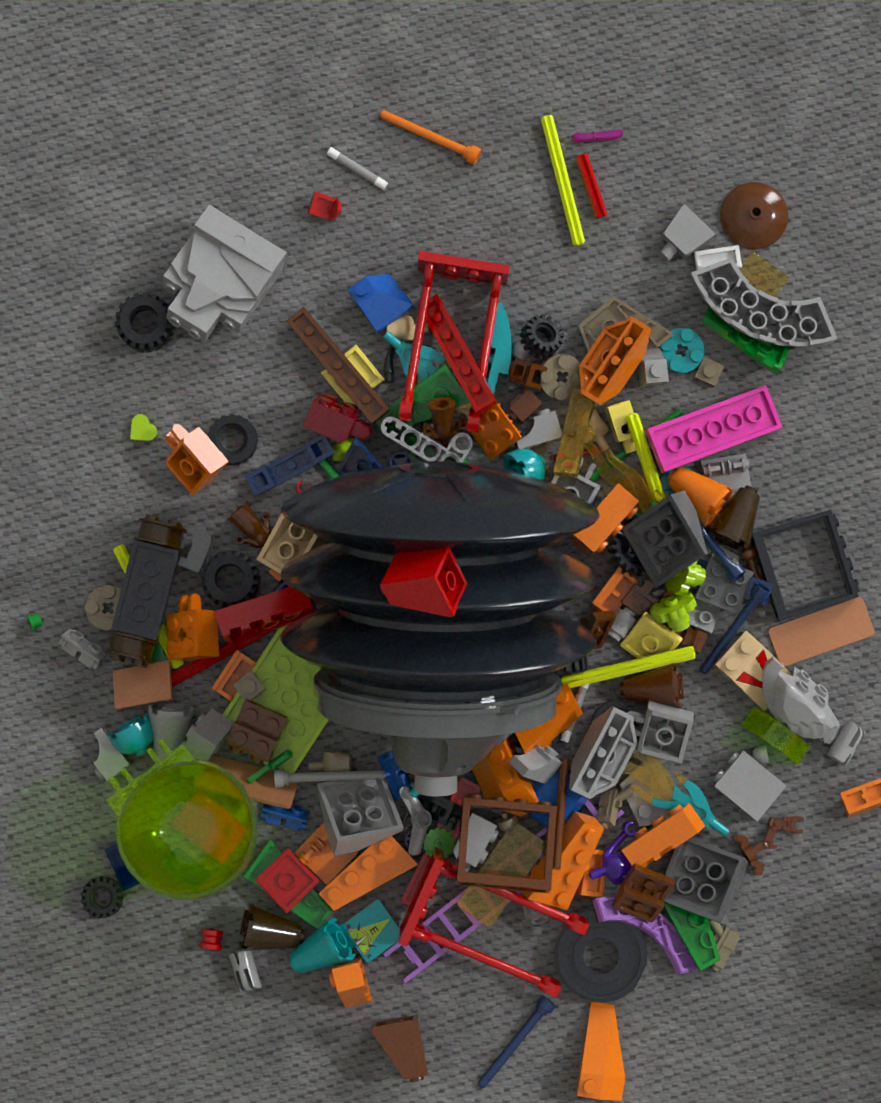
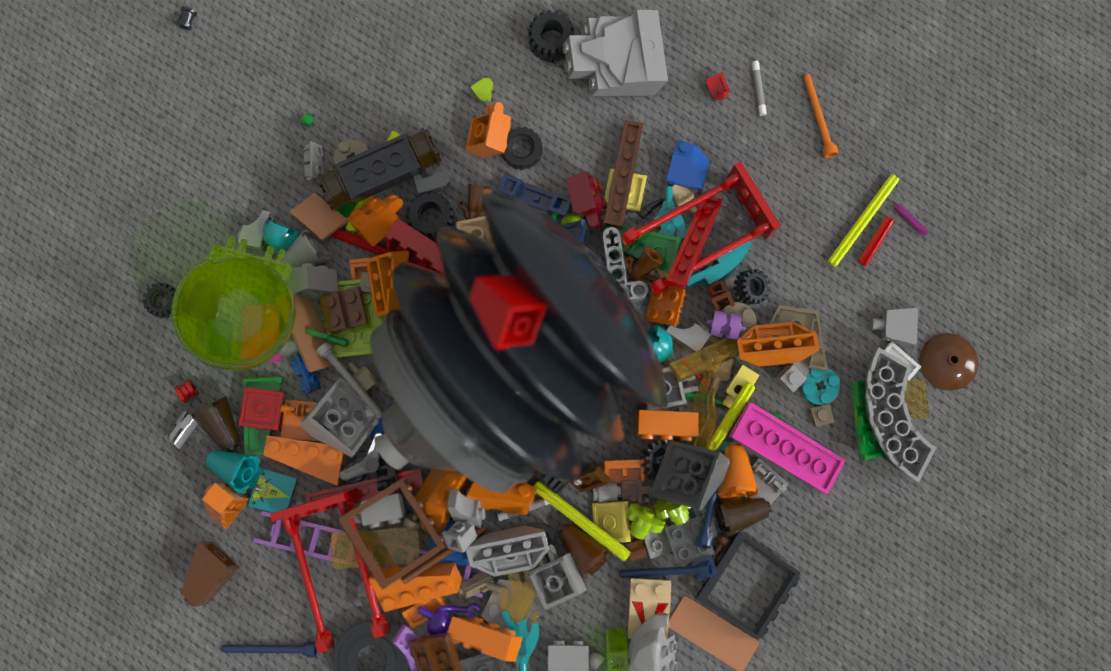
camera: 55 degrees right, 5 degrees down
(267, 668) = (380, 276): none -> orange wedge
(440, 839) = (365, 487): bright green piece -> none
(523, 406) = (696, 312): reddish brown window -> none
(556, 781) = (460, 536): none -> light grey brick
(558, 391) = (726, 325): none -> medium lavender wheel

